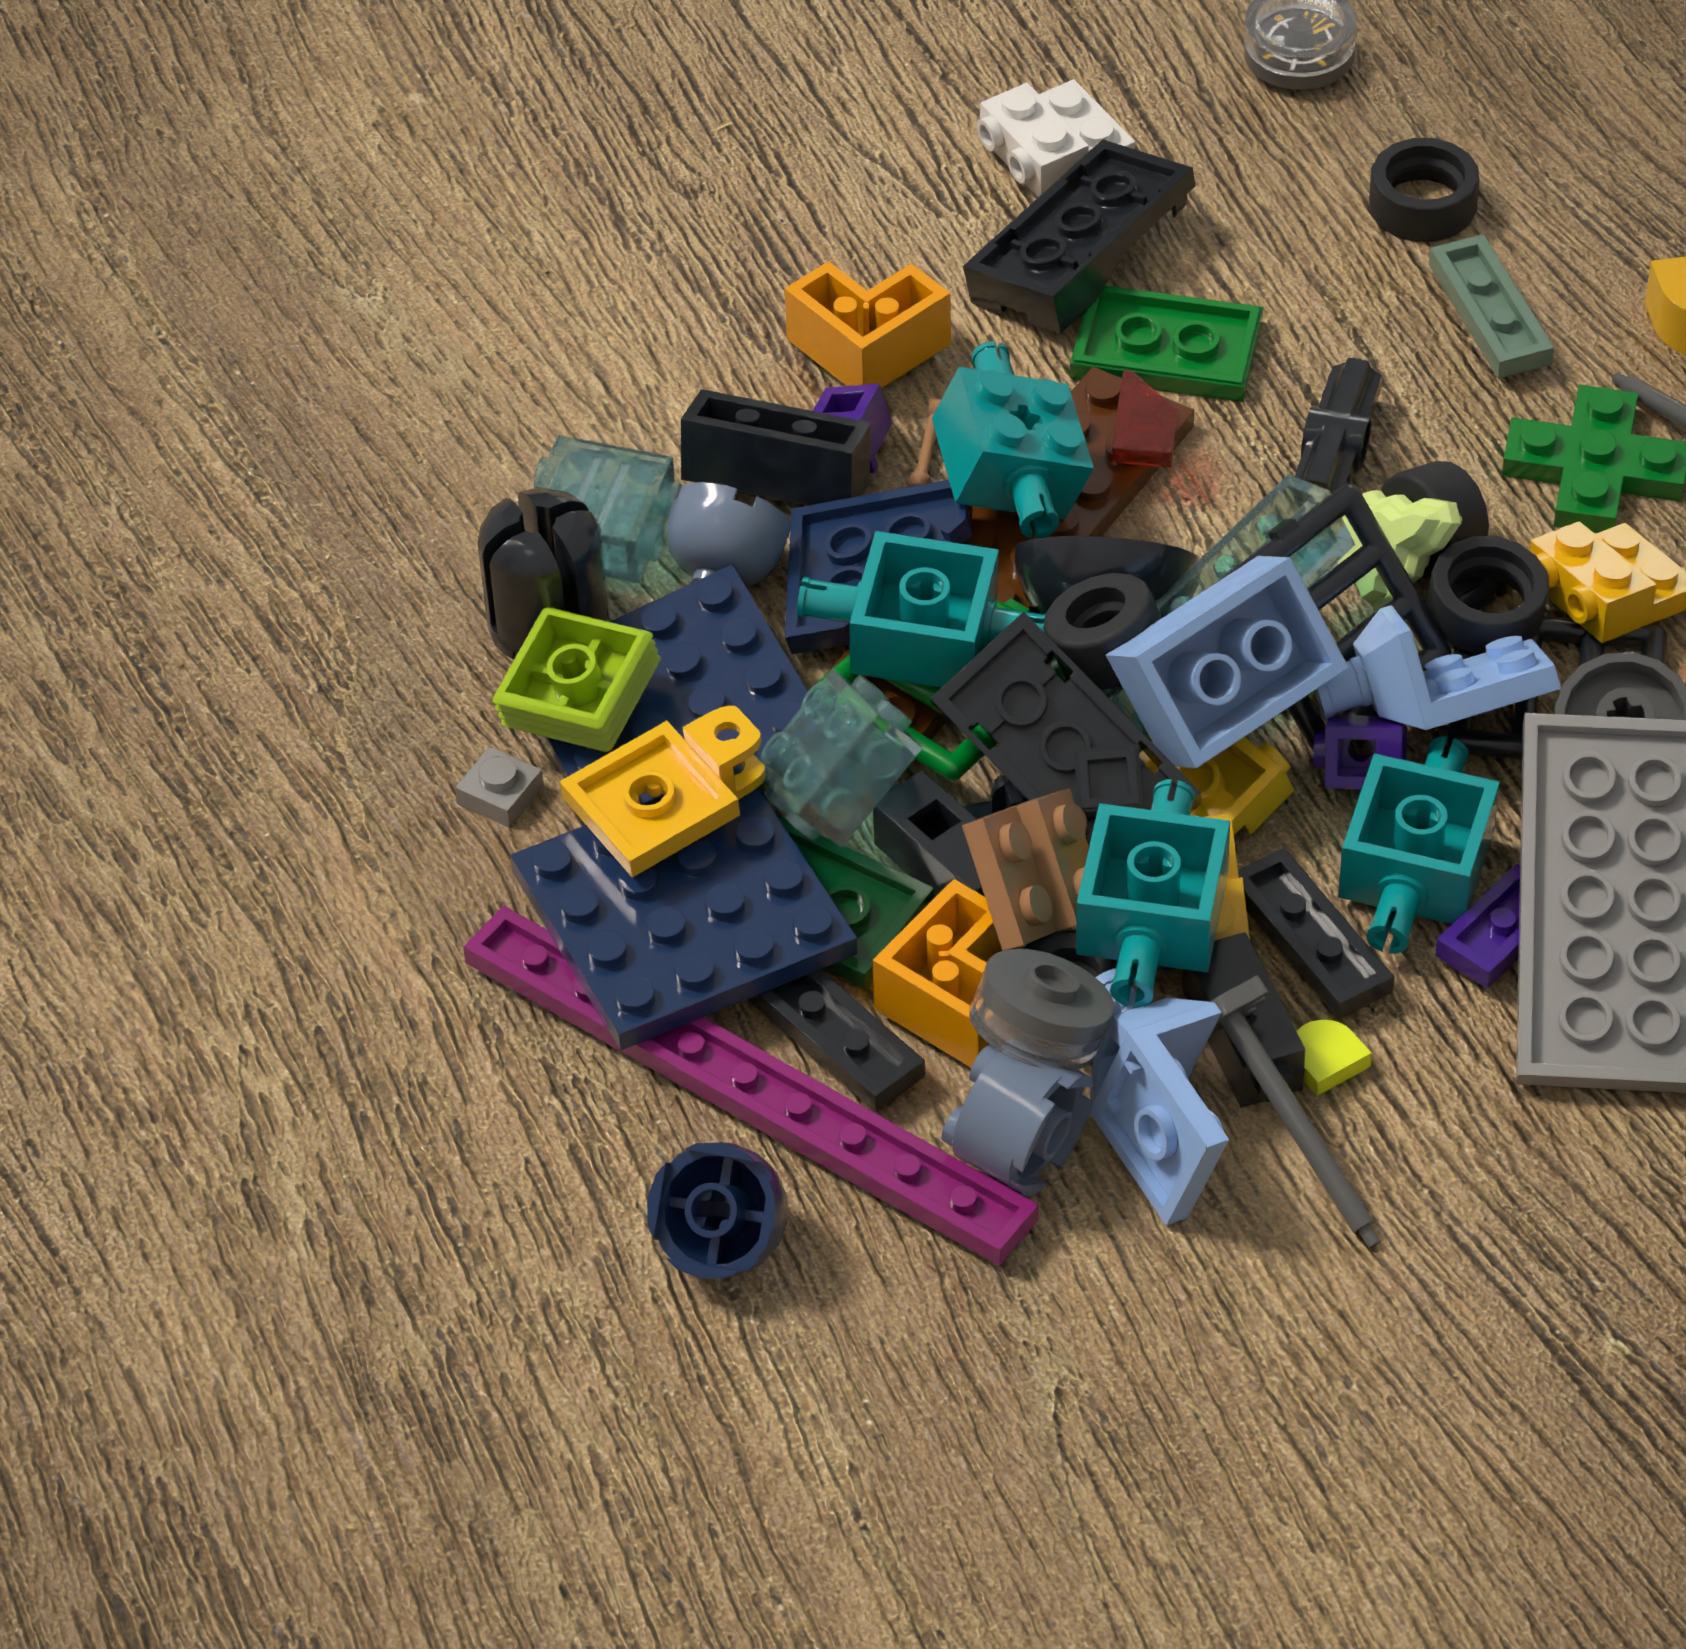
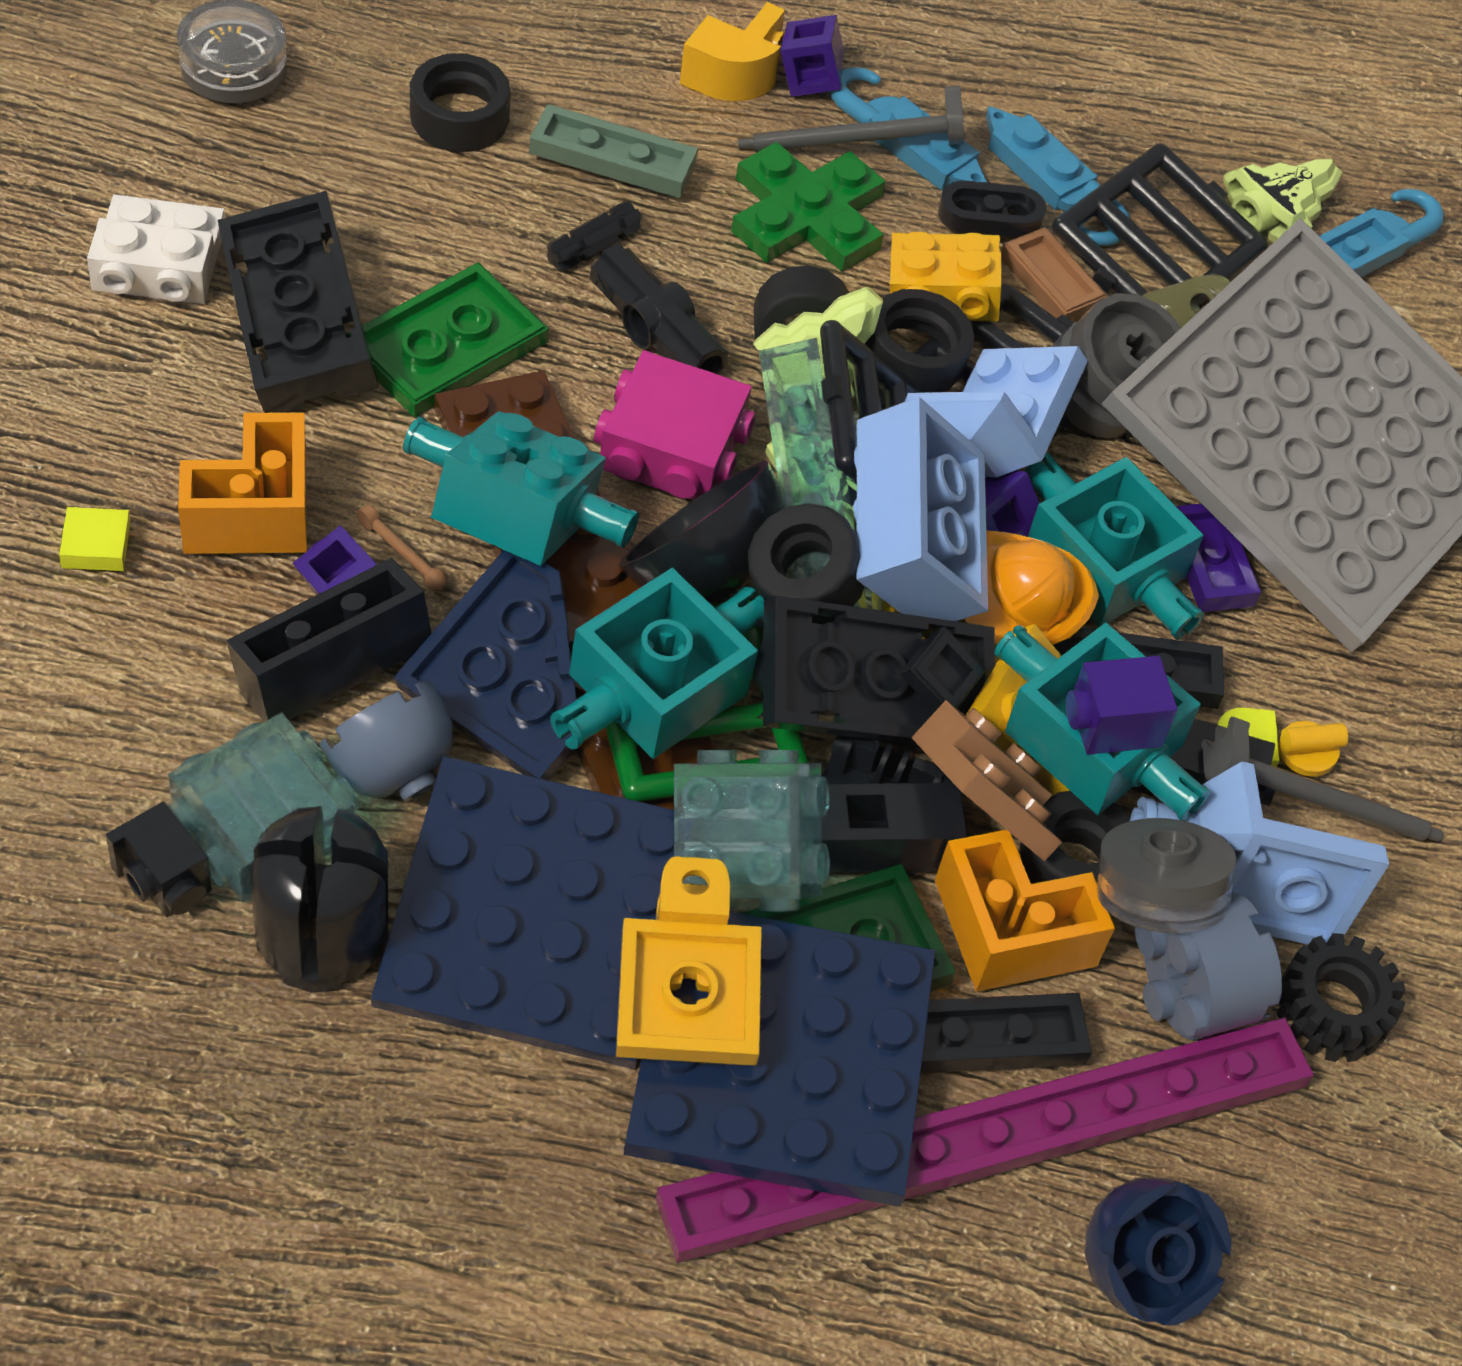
camera: 65 degrees left, 5 degrees up
(499, 786) = (492, 1099): light grey plate -> none
(504, 475) = (160, 860): none -> black brick
(576, 679) = (498, 915): lime brick -> none
(746, 287) = (95, 539): none -> neon yellow tile
(1106, 1208) = (1357, 972): none -> black tyre
(1128, 856) = (1121, 705): none -> dark purple brick
(1143, 425) = (546, 401): clear red tile -> none
(1201, 492) = (674, 426): none -> dark pink brick
(1282, 795) = (1035, 585): none -> light orange hat
(1359, 1097) = (1312, 747): none -> yellow plate
(1384, 353) = (593, 236): none -> black axle

